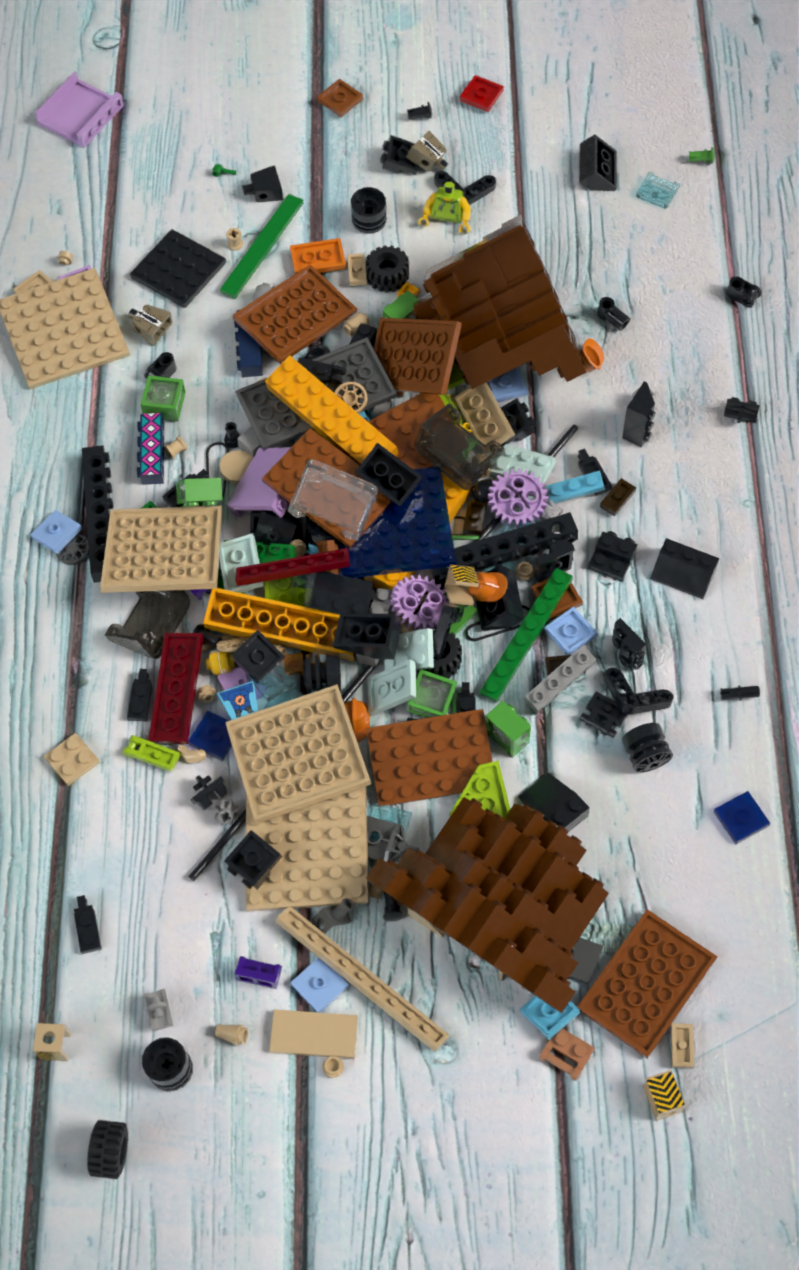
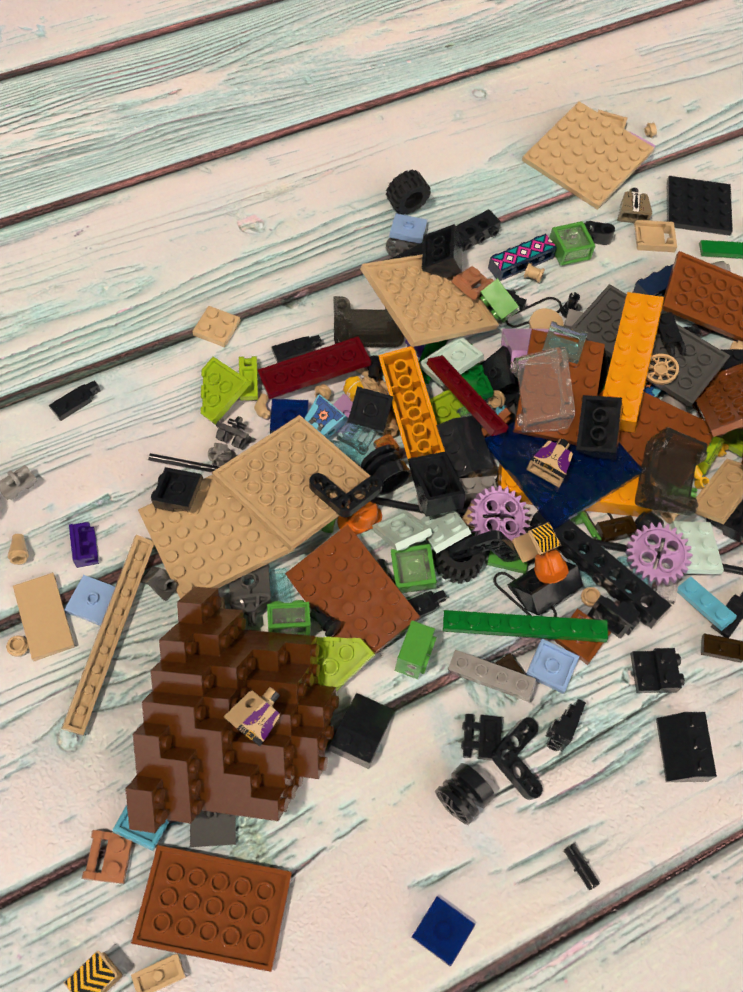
camera: 55 degrees right, 0 degrees up
(19, 509) = (408, 192): none -> black tyre
(117, 512) = (442, 252): none -> black slope
(152, 783) = (220, 389): none -> lime plate
(158, 506) = (468, 279): none -> nougat plate
(189, 327) = (651, 236): none -> tan container
(293, 466) = (572, 348): none -> clear light blue plate
(342, 719) = (342, 498): none -> black beam
(399, 531) = (551, 461): none -> torso
(431, 817) = (289, 617): none -> piece
(446, 789) = (326, 622): none -> black pin
(522, 862) = (255, 715): none -> tan torso

